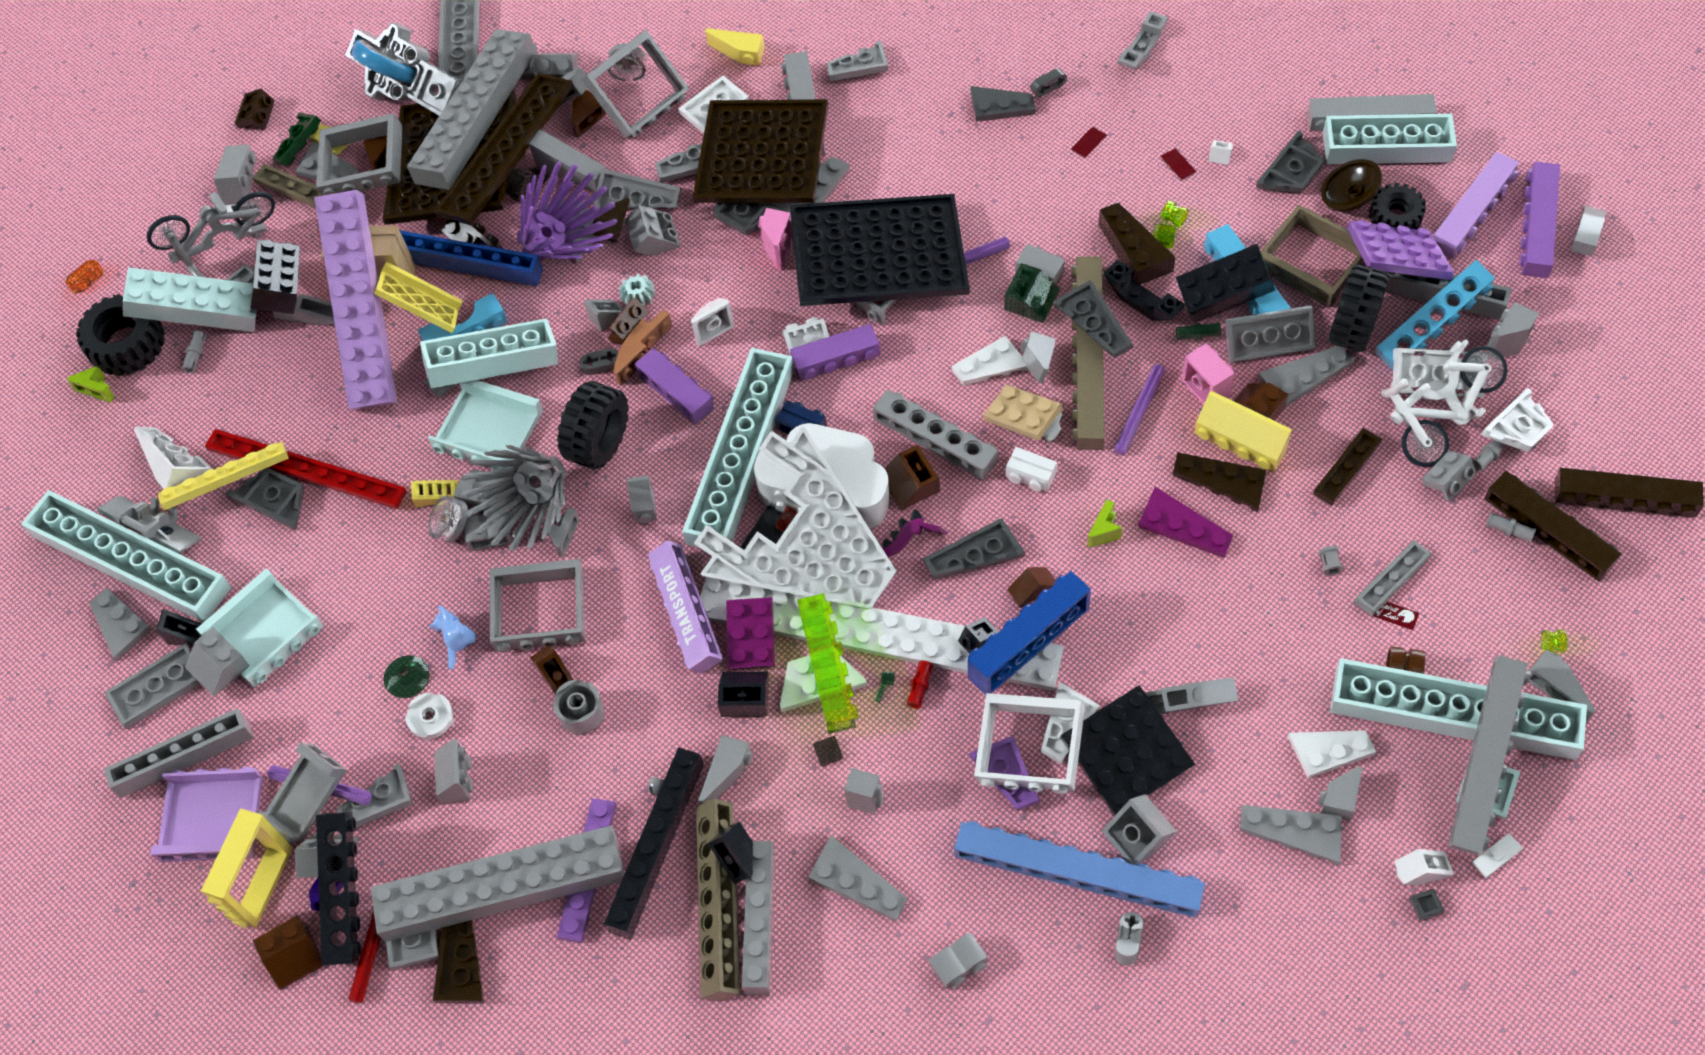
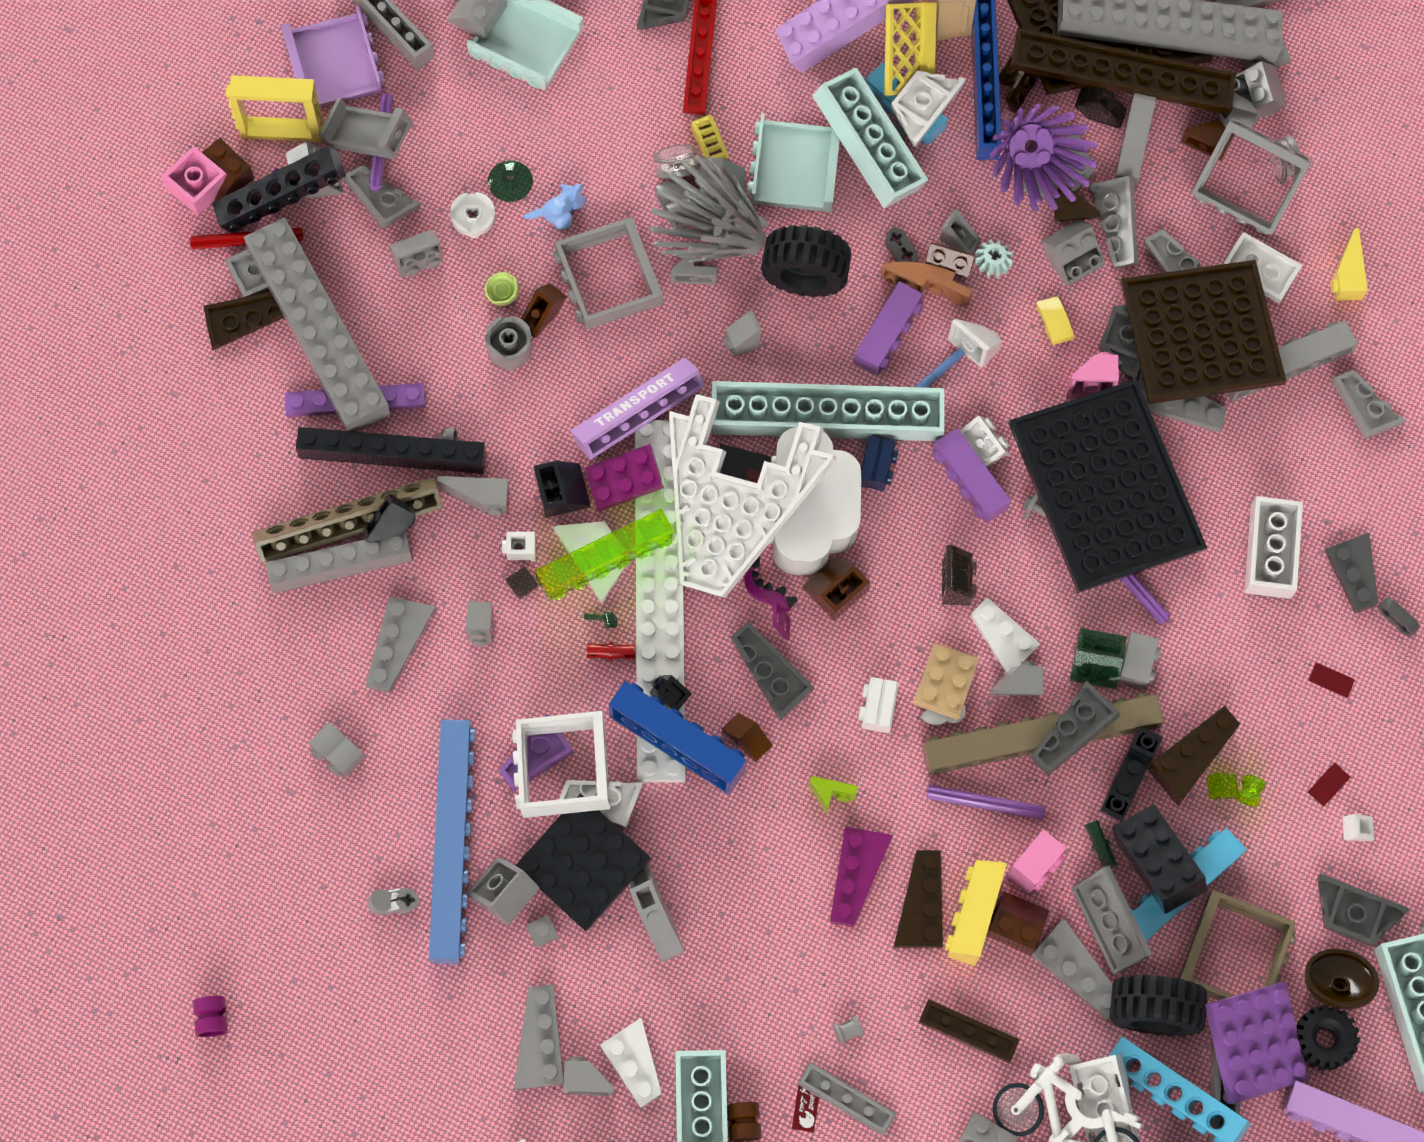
camera: 65 degrees right, 10 degrees up
(289, 979) = (194, 180): none -> bright pink slope
(472, 304) = (923, 102): none -> white wing
(519, 702) = (502, 289): none -> yellowish green hair
(713, 258) = (1055, 320): none -> light yellow slope
(726, 356) = (941, 369): none -> medium blue bar
(790, 735) = (524, 539): none -> white brick
(927, 383) = (957, 576): none -> clear smoke slope
(966, 148) = (1273, 547): none -> white brick
(978, 465) = (913, 544): light grey brick -> none
(1186, 805) = (542, 931): none -> light grey plate

